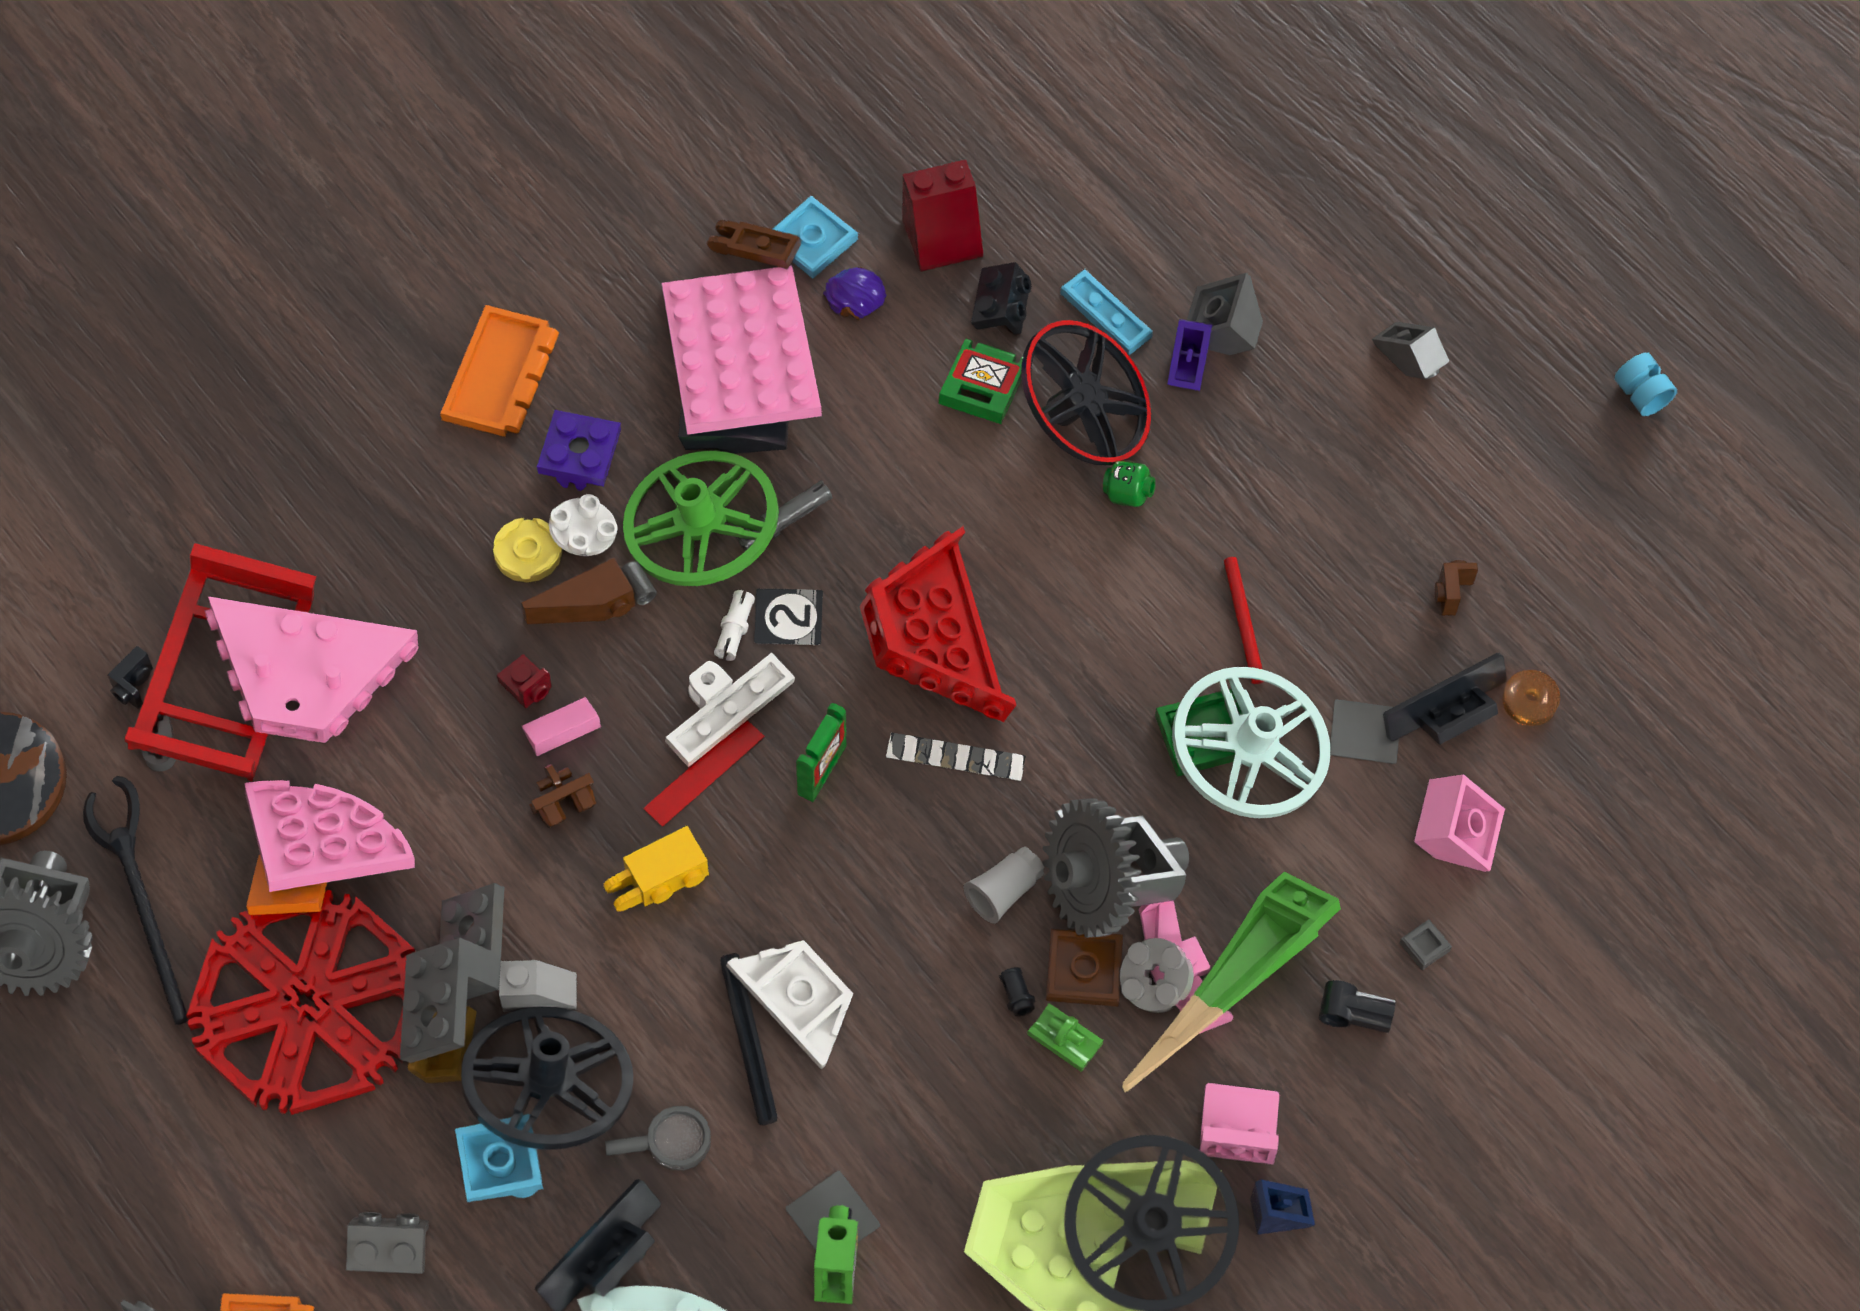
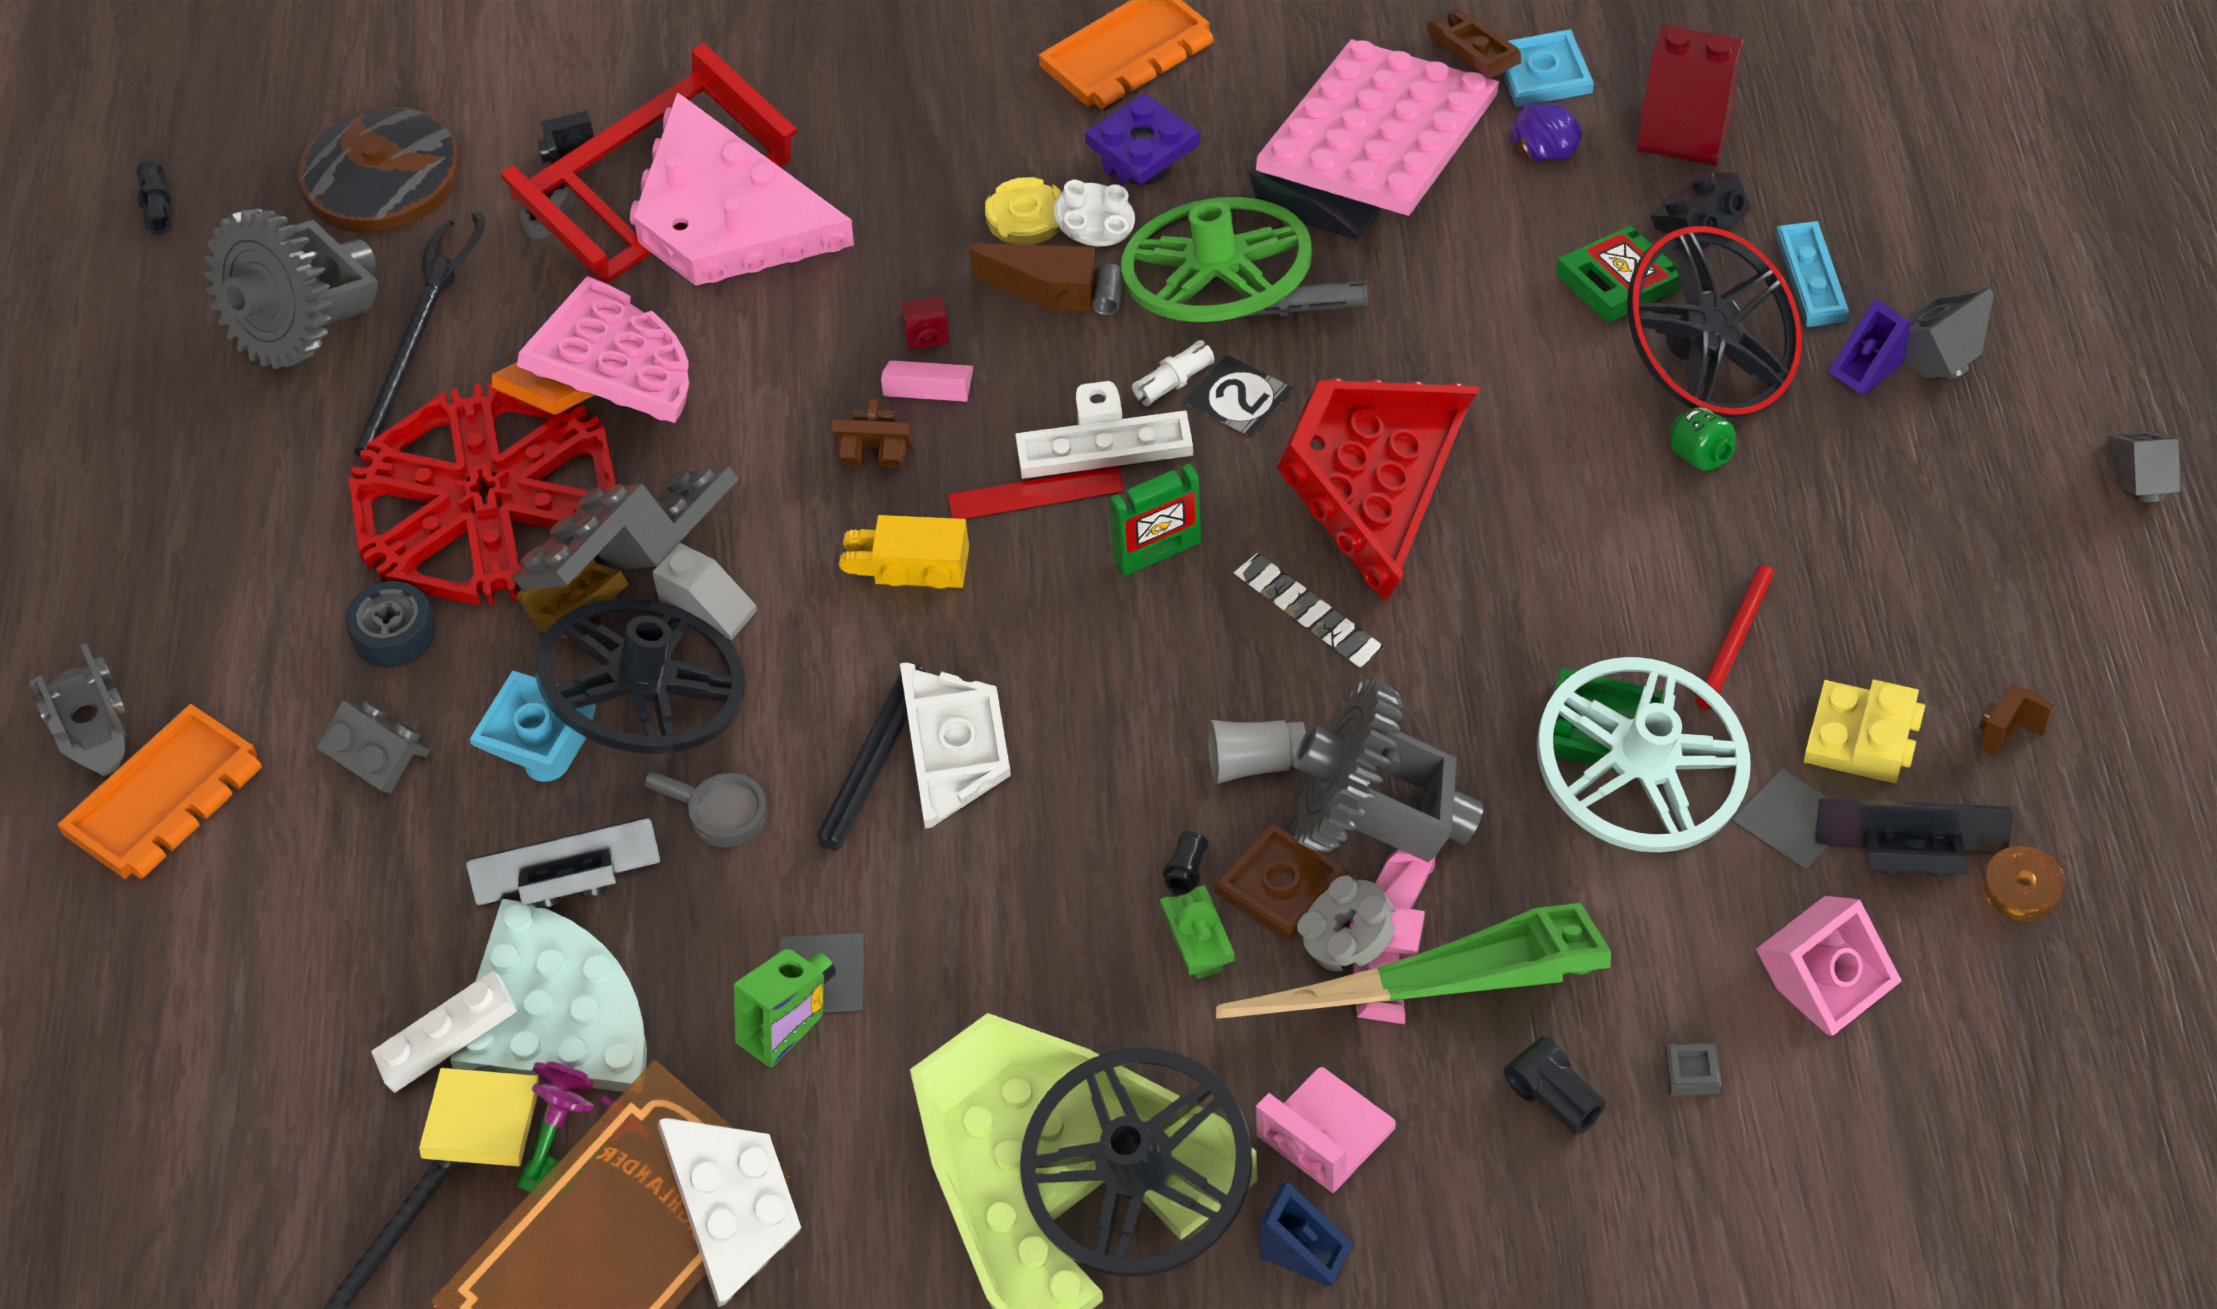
camera: 40 degrees right, 10 degrees down
(313, 1160) = (390, 624): none -> black wheel
(1369, 643) = (1865, 729): none -> light yellow plate

